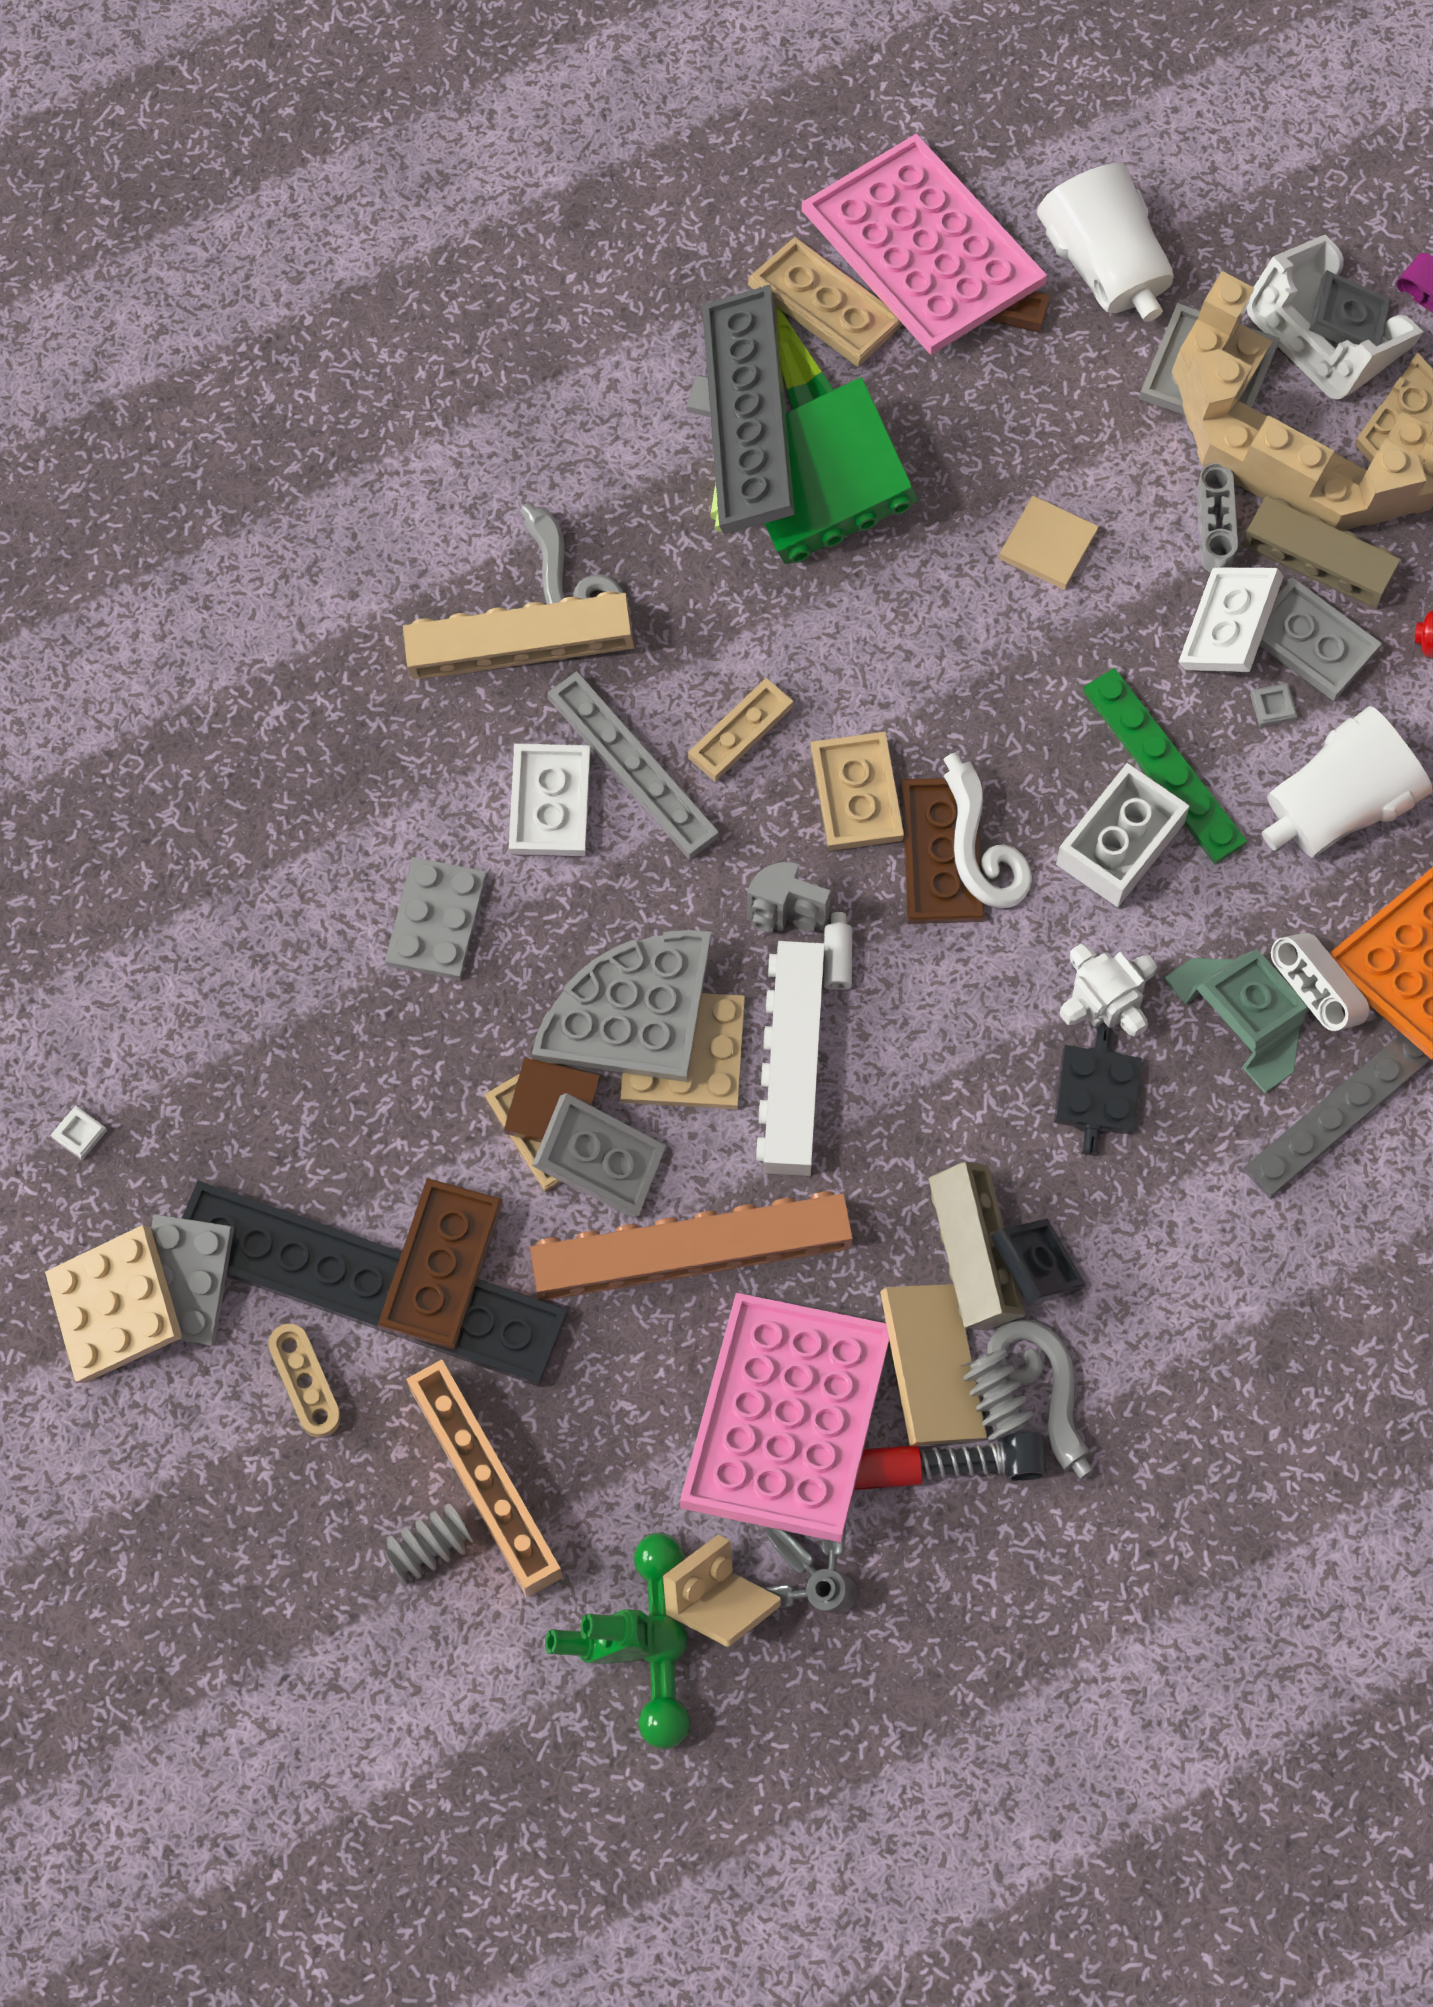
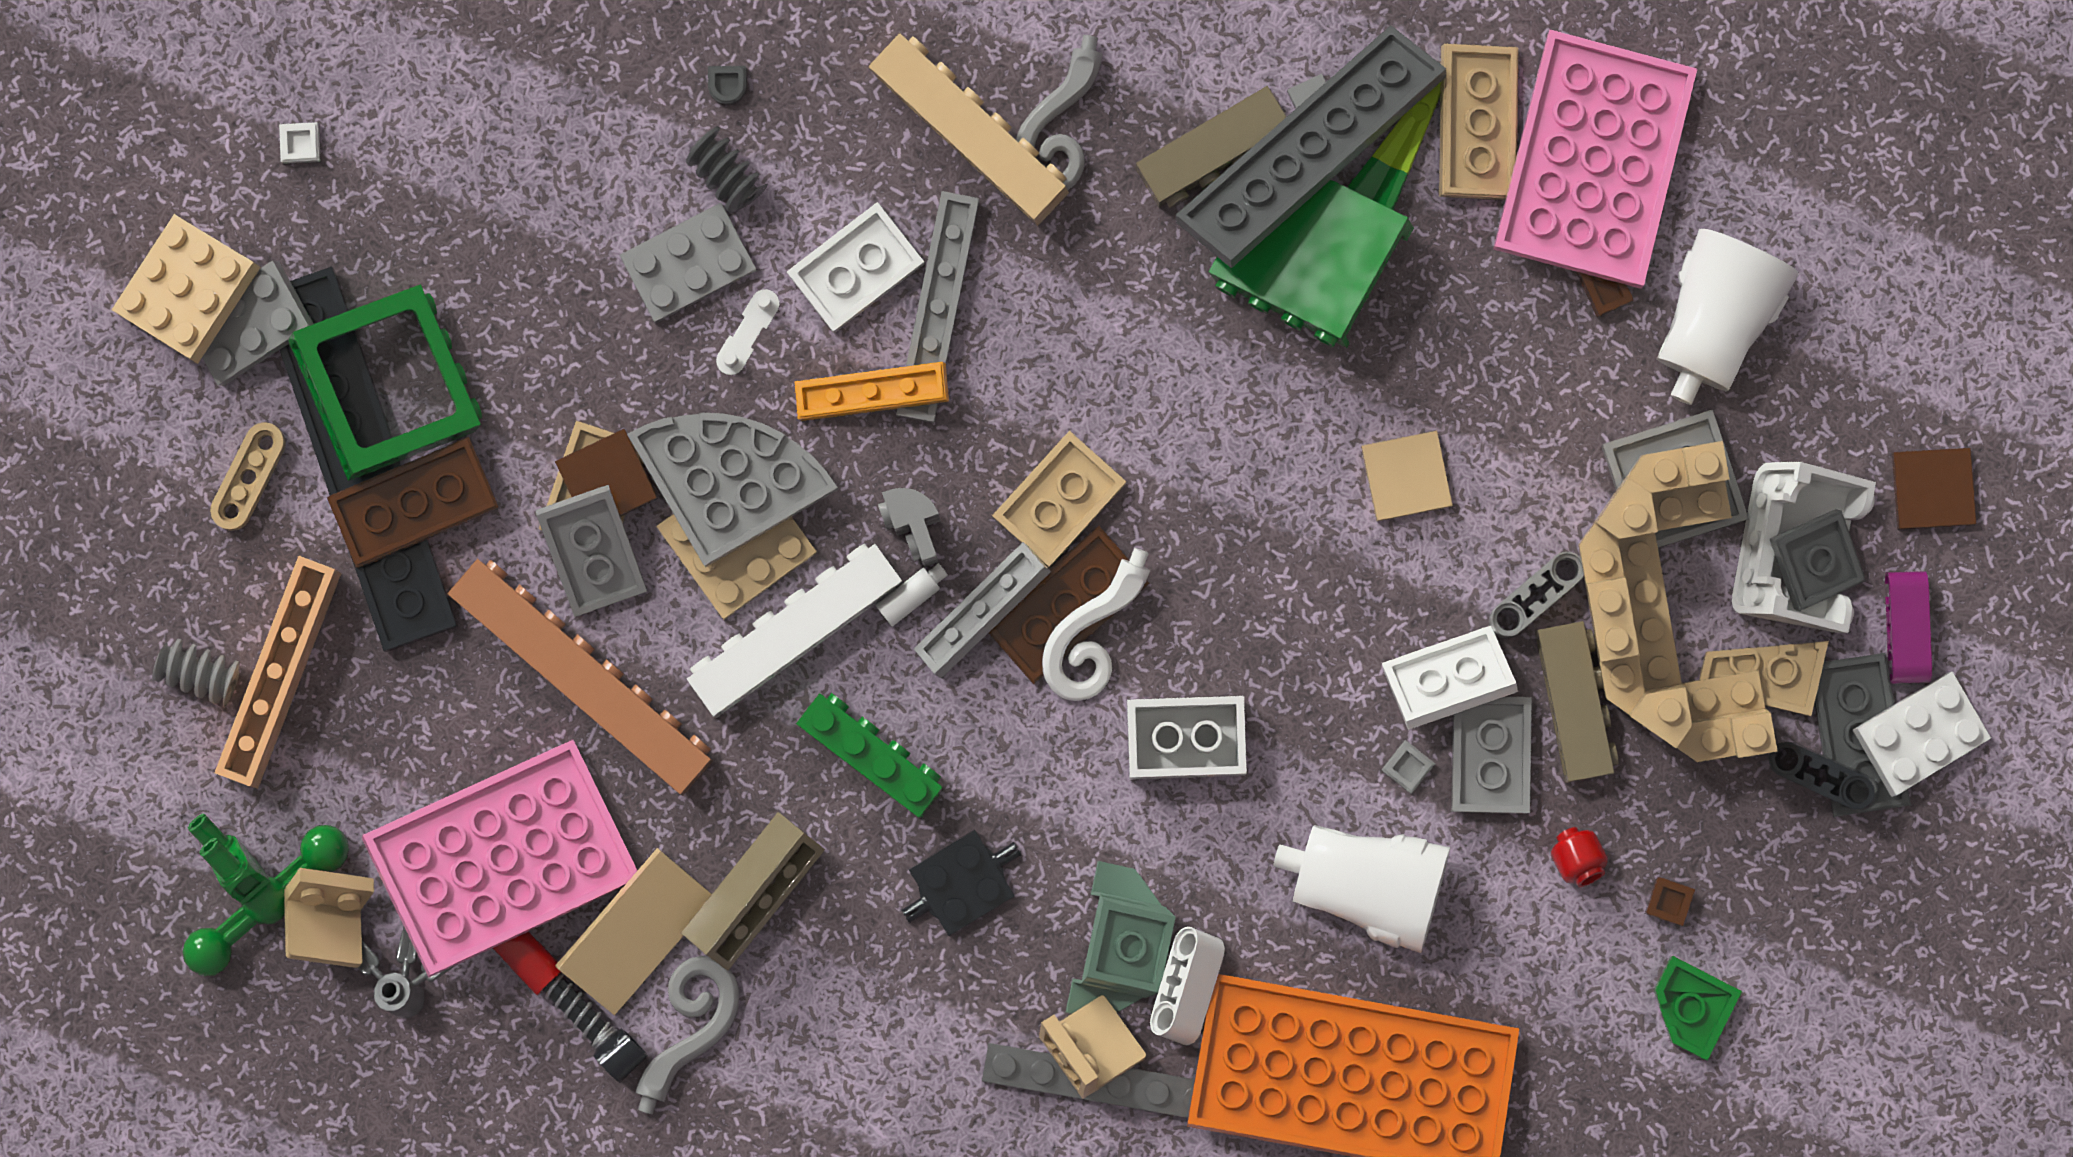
camera: 55 degrees right, 15 degrees up
(315, 1261) = (358, 460): none -> green piece
(324, 785) = (727, 83): none -> dark grey tile
(391, 833) = (724, 172): none -> dark grey piece
(521, 900) = (757, 316): none -> white piece
(656, 857) = (871, 391): none -> light orange tile
(684, 488) = (1208, 148): none -> dark tan brick
(740, 729) = (1037, 366): tan plate -> none
(896, 907) = (982, 610): none -> light grey plate
(941, 1075) = (869, 755): none -> green brick
(997, 1394) = (651, 998): light grey piece -> none
(1038, 1261) = (778, 947): black plate -> none
(1108, 990) = (1046, 828): white piece -> none
(1164, 764) = (1282, 721): green plate -> none
(1311, 1087) = (1091, 1045): none -> tan bracket
(1358, 210) = (1934, 488): none -> reddish brown tile

